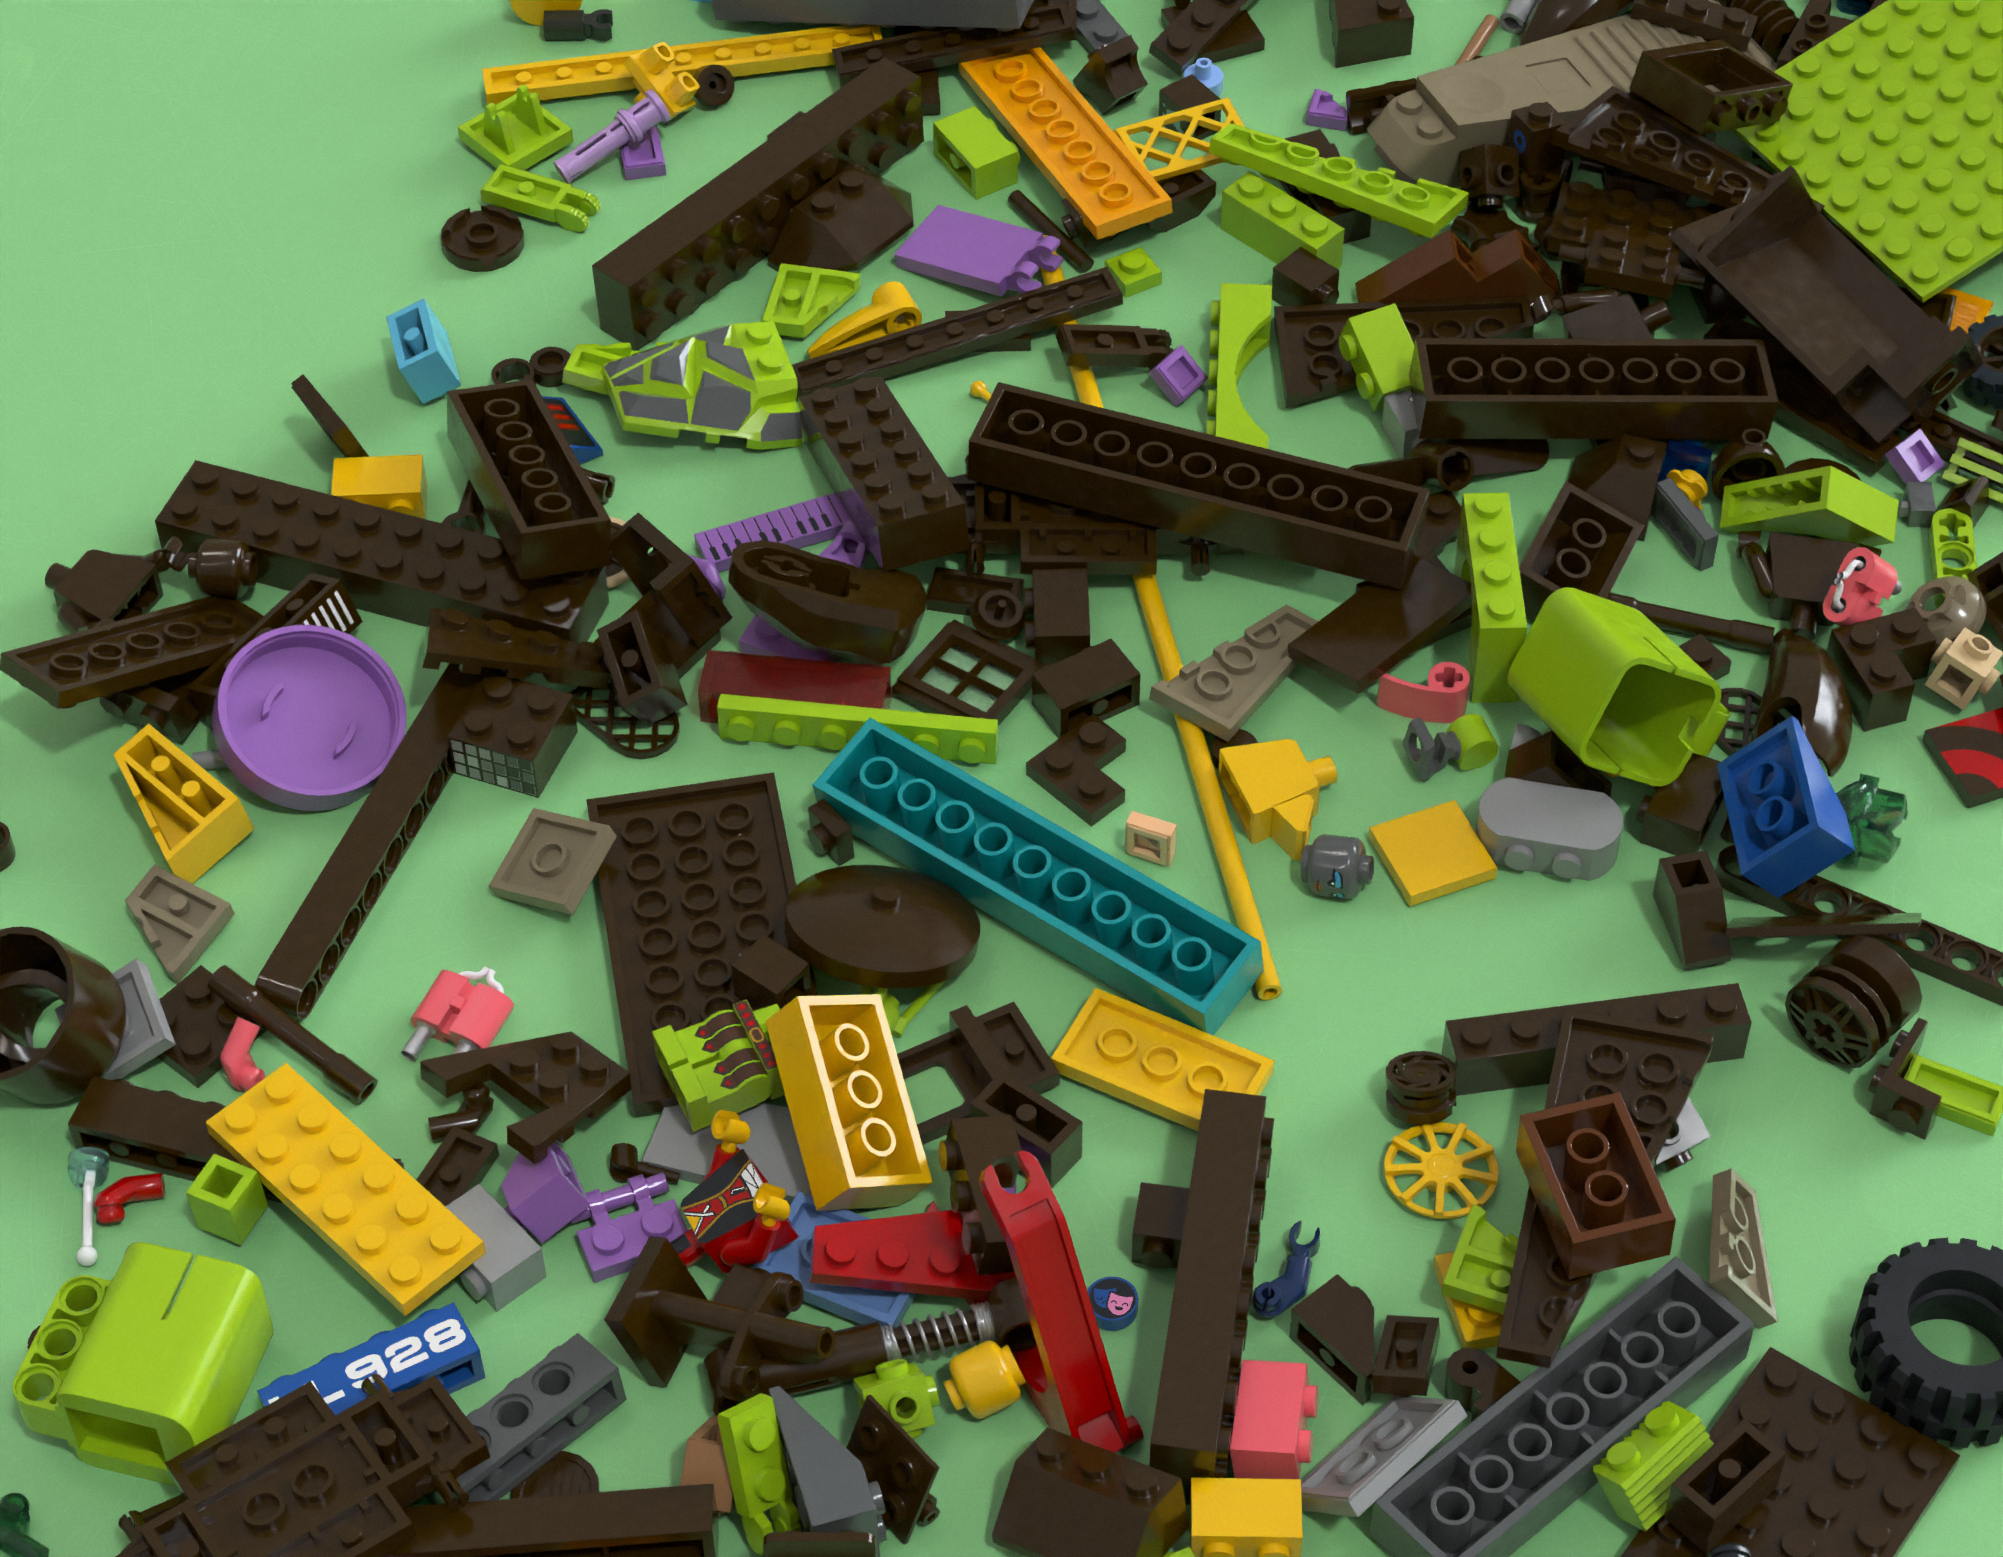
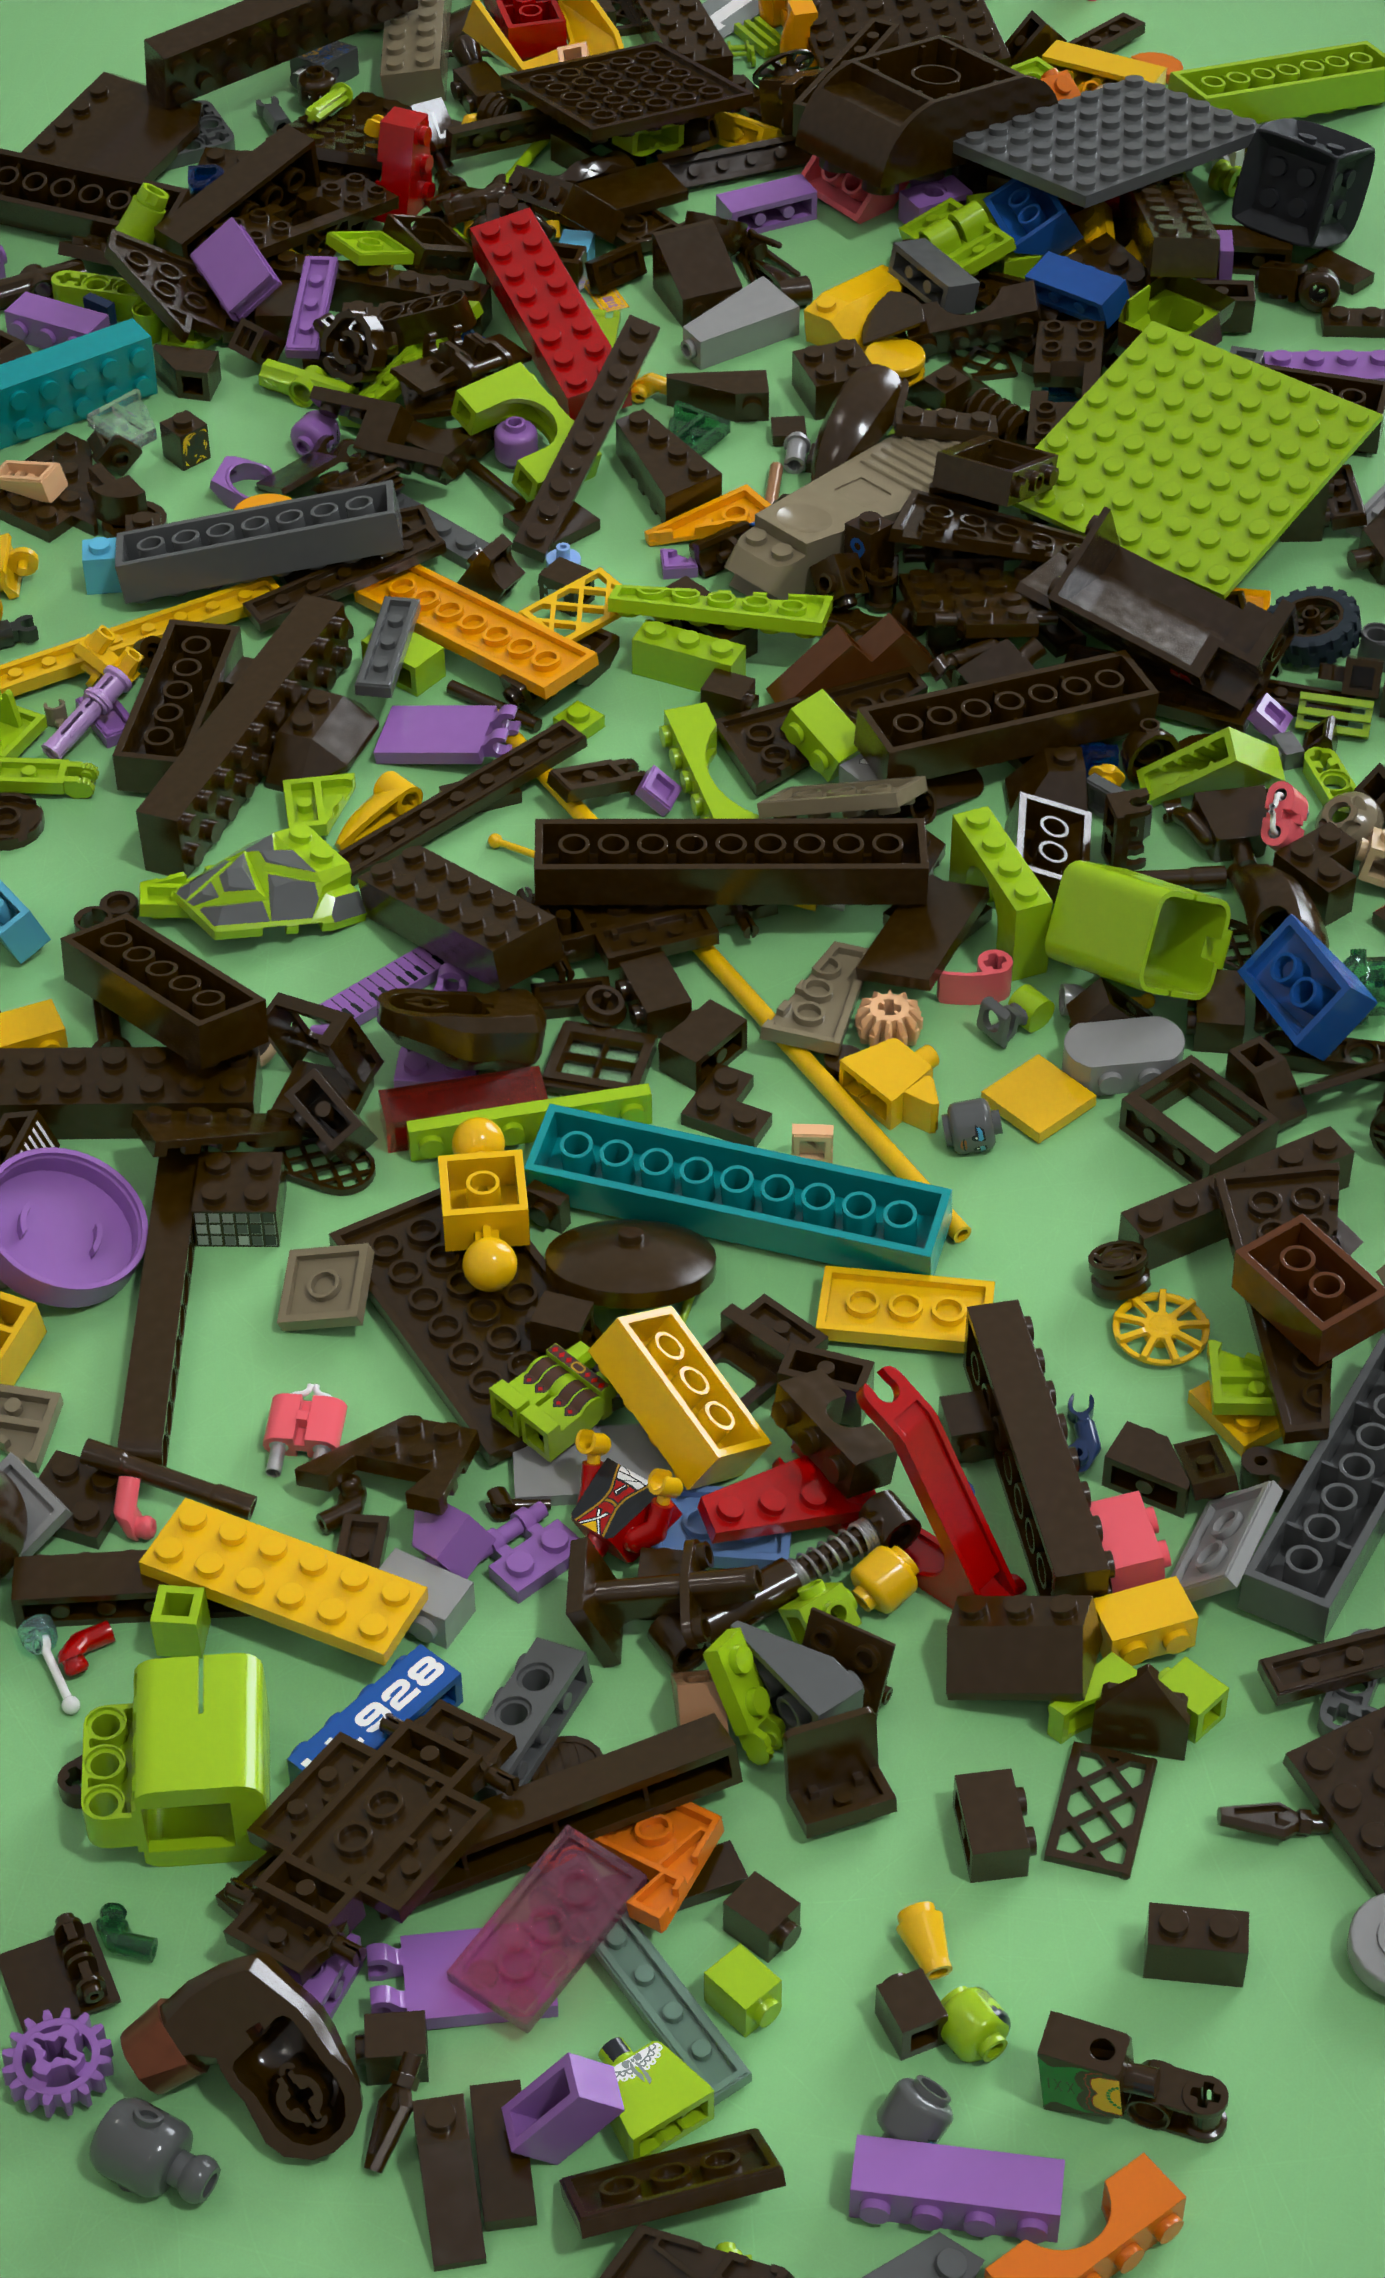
camera: 20 degrees left, 5 degrees down
(587, 129) = (56, 715): none -> dark tan hand
(707, 138) = (175, 700): none -> dark brown brick
(751, 813) = (484, 1203): none -> yellow brick
(955, 137) = (387, 647): none -> dark grey tile
(1304, 715) = (888, 1017): none -> light nougat gear
(1363, 439) = (843, 797): none -> dark tan plate
(1383, 64) = (709, 517): none -> light orange wing
(1610, 875) = (1144, 1122): none -> dark brown window
(1674, 556) = (1125, 828): none -> dark brown hinge

